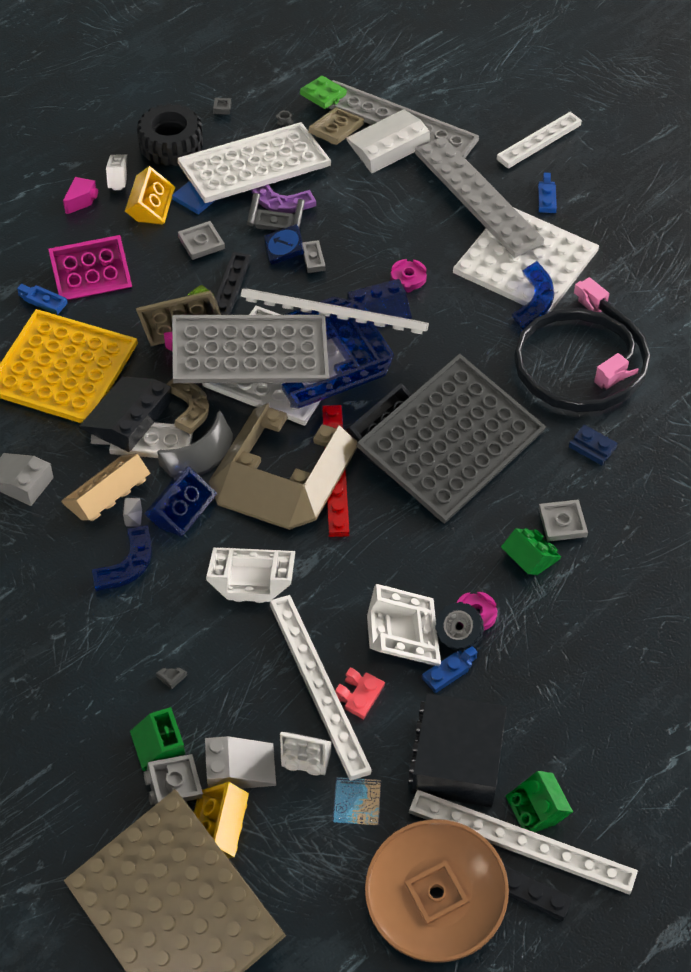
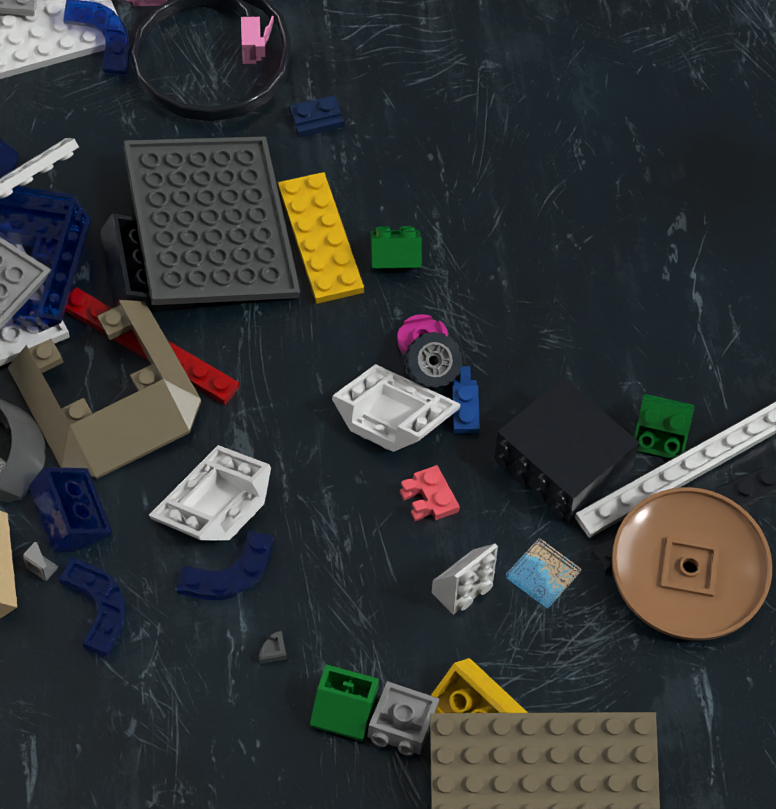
camera: 55 degrees left, 5 degrees up
(210, 624) = (231, 581): none -> clear blue plate
(240, 762) = (425, 649): light grey slope -> none
(320, 688) = (393, 521): white plate -> none
(501, 506) = (320, 238): none -> yellow plate
(563, 520) = (382, 199): light grey plate -> none

